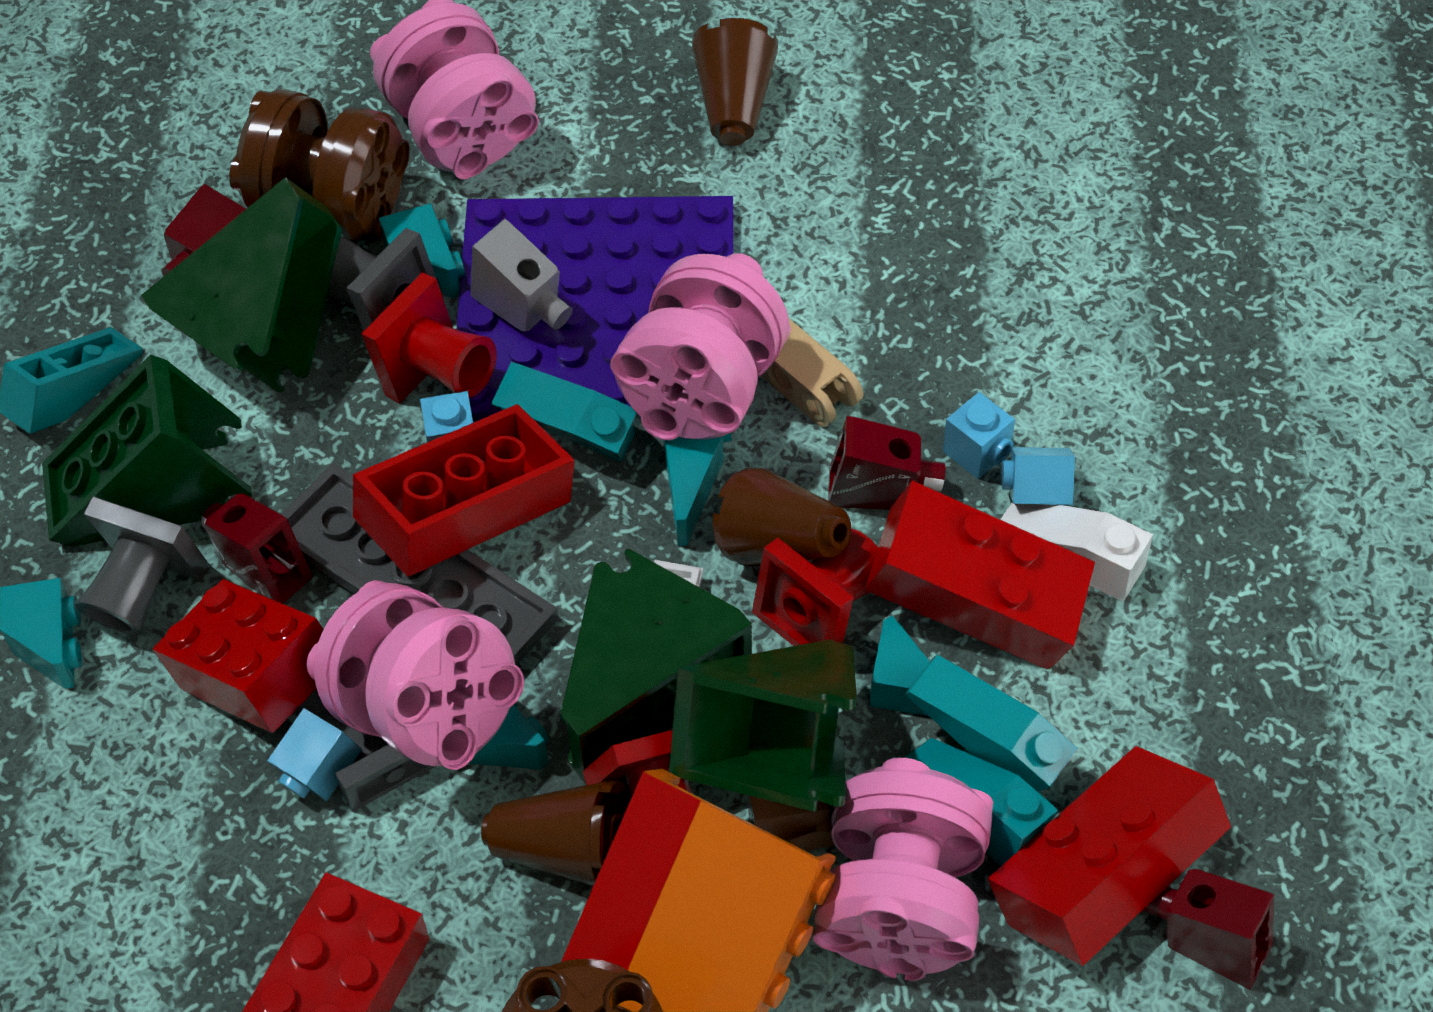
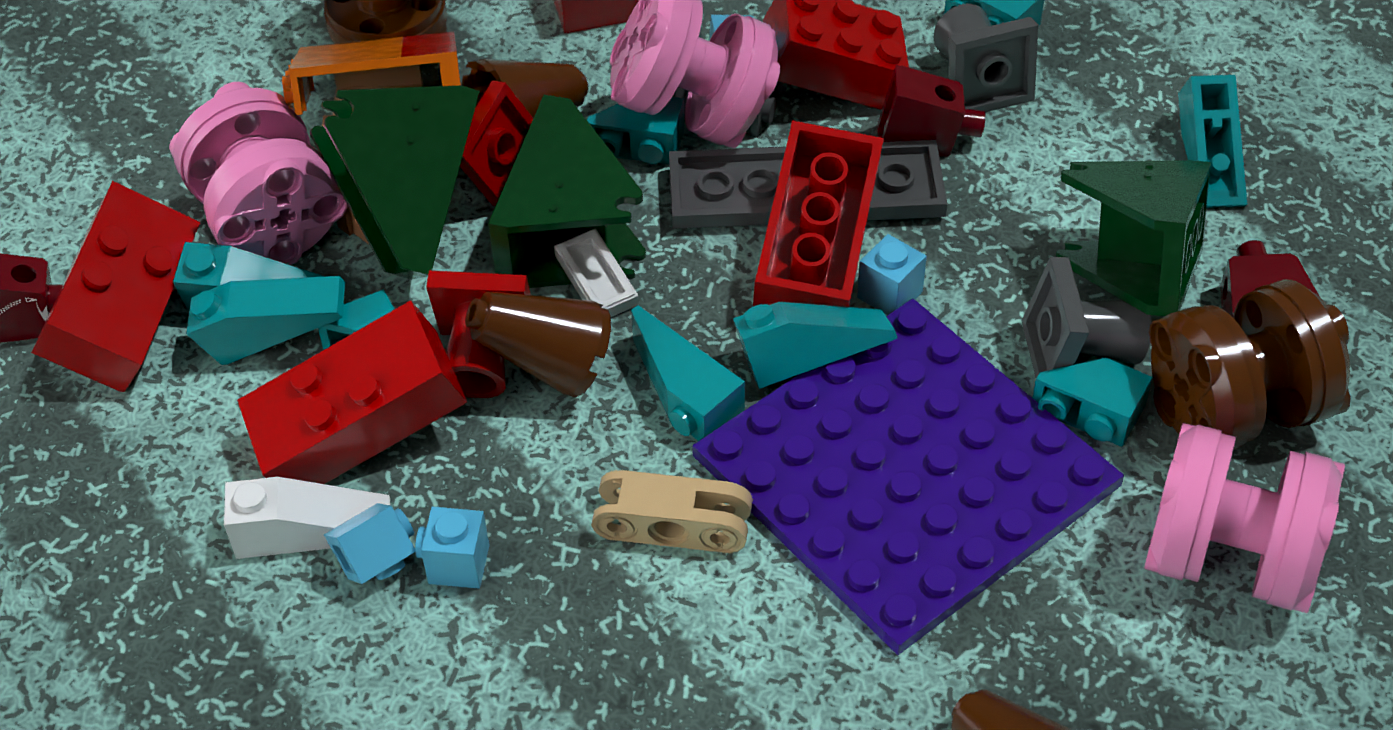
camera: 140 degrees right, 5 degrees down
(142, 454) = (1058, 103): dark green ladder -> none
(418, 340) = (988, 300): red plant -> none
(516, 279) = (959, 378): light grey torso -> none
(701, 347) = (731, 400): bright pink piece -> none
(877, 464) = (514, 453): dark red torso -> none

